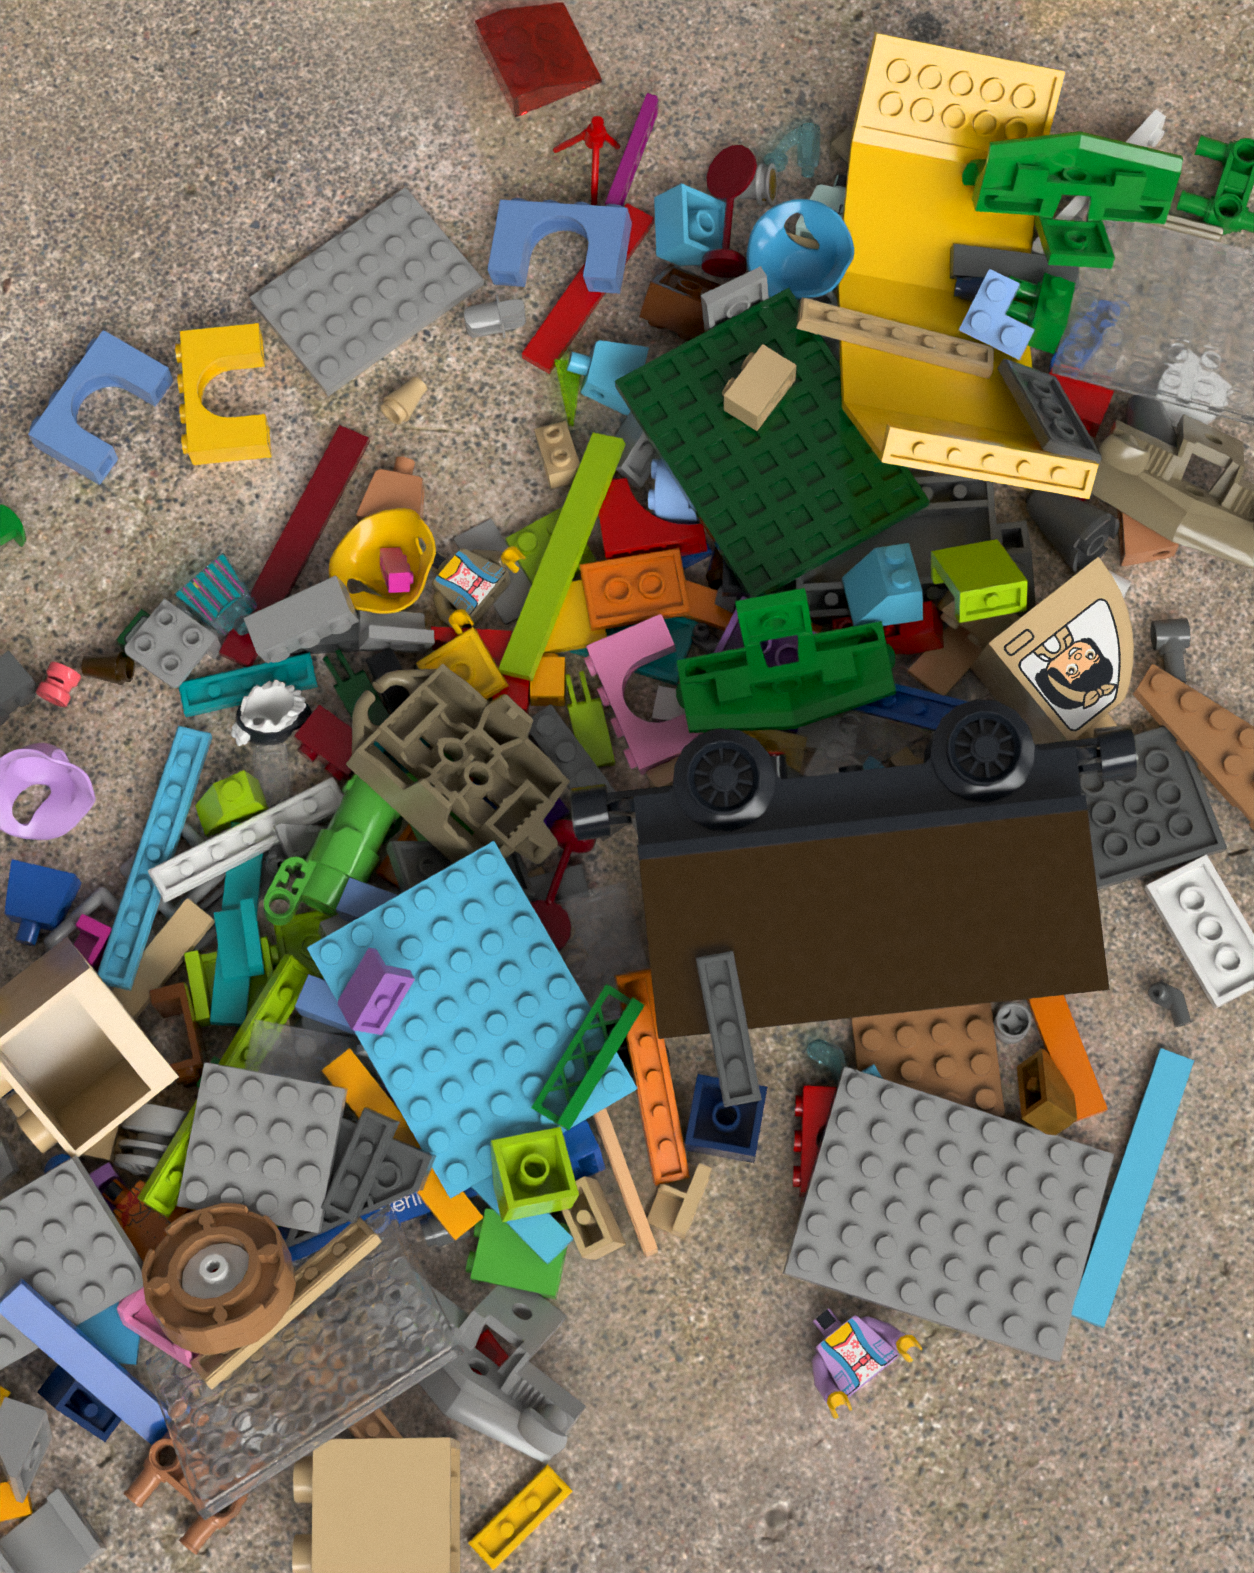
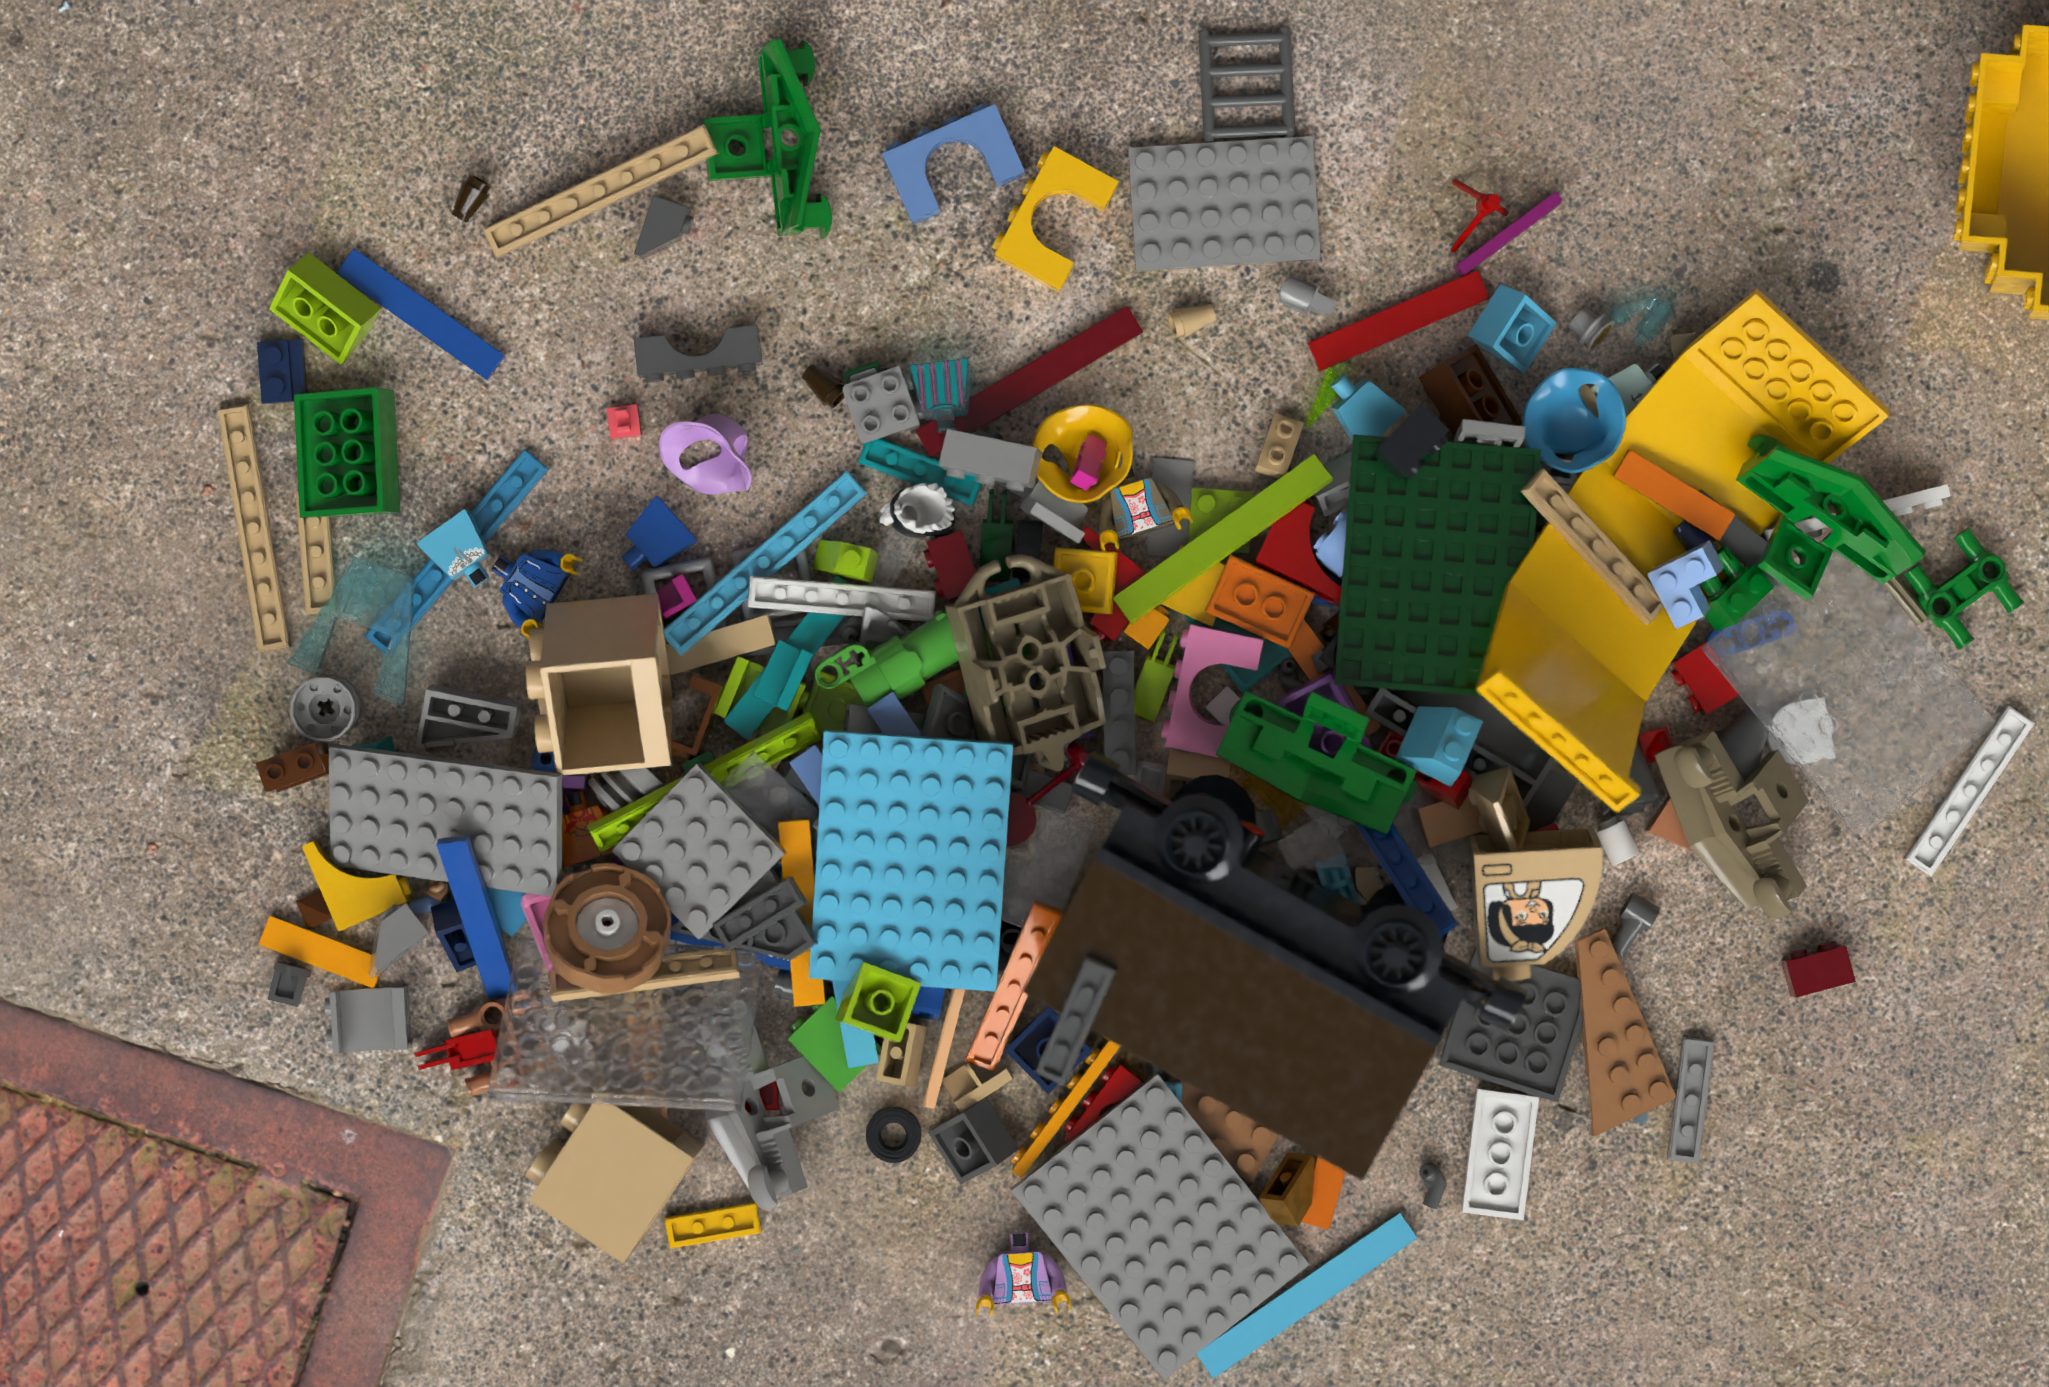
camera: 35 degrees right, 15 degrees up
(35, 1375) = (436, 895): none -> arm
(58, 684) = (771, 377): coral wheel -> none
(158, 1512) = (464, 1050): none -> red arm
(340, 152) = (1281, 68): none -> dark grey bar
(374, 994) = (848, 803): medium lavender panel -> none
(394, 490) = (1130, 395): nougat torso -> none
(524, 223) = (1382, 235): medium blue arch -> none
(535, 55) = (1495, 91): clear red slope -> none
(599, 1064) = (979, 960): green fence -> none
(658, 1305) = (877, 1145): none -> black tyre
(670, 344) = (1417, 436): none -> black brick
(715, 1256) = (973, 1141): none -> dark grey slope
(726, 179) = (1570, 308): dark red piece -> none
(758, 387) = (1457, 520): tan brick -> none
(778, 1168) = (1063, 1107): none -> light orange plate
(931, 260) = (1673, 495): none -> orange tile
(980, 579) = (1506, 799): lime panel -> none
(1048, 411) = (1665, 691): dark grey tile -> none

